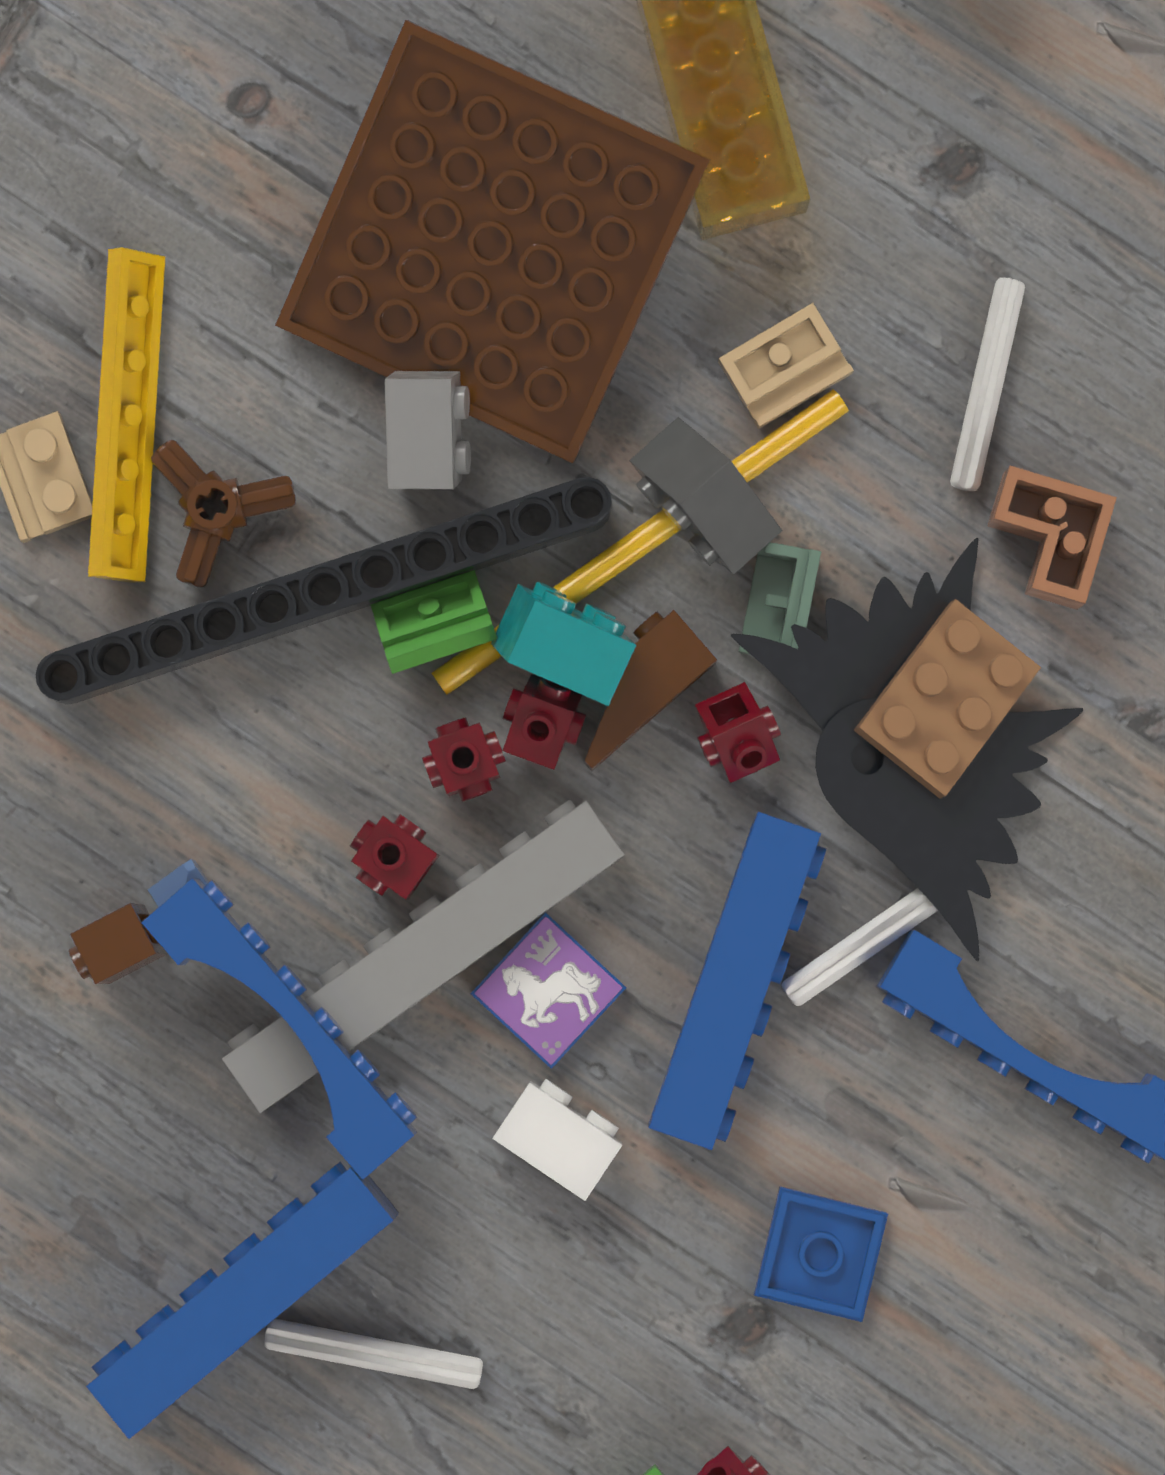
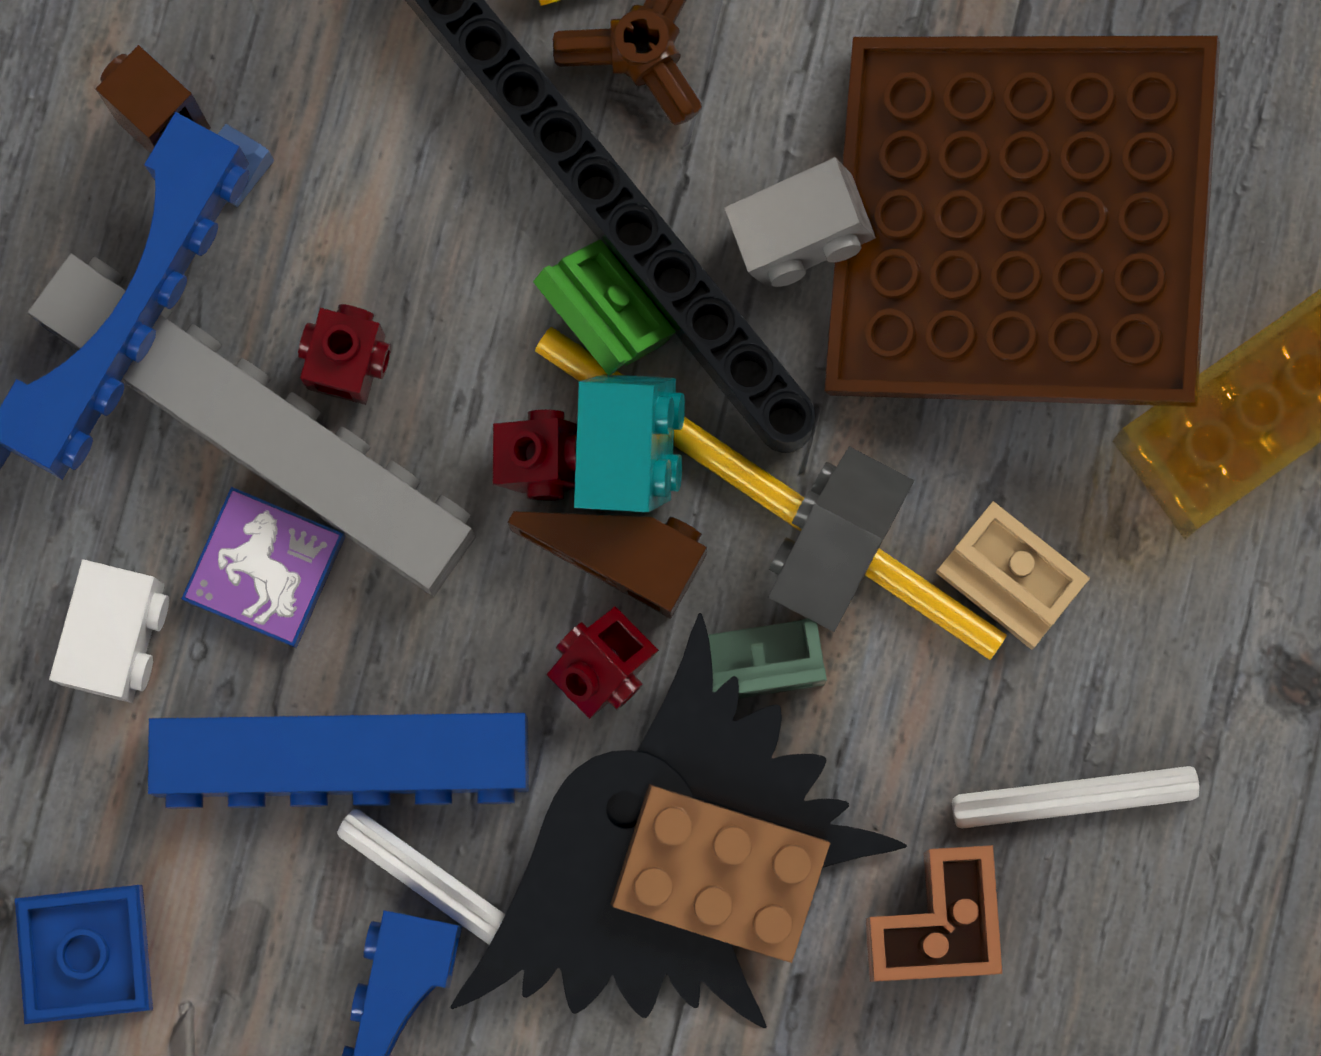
camera: 70 degrees right, 5 degrees down
(471, 780) = (473, 410): dark red brick -> none

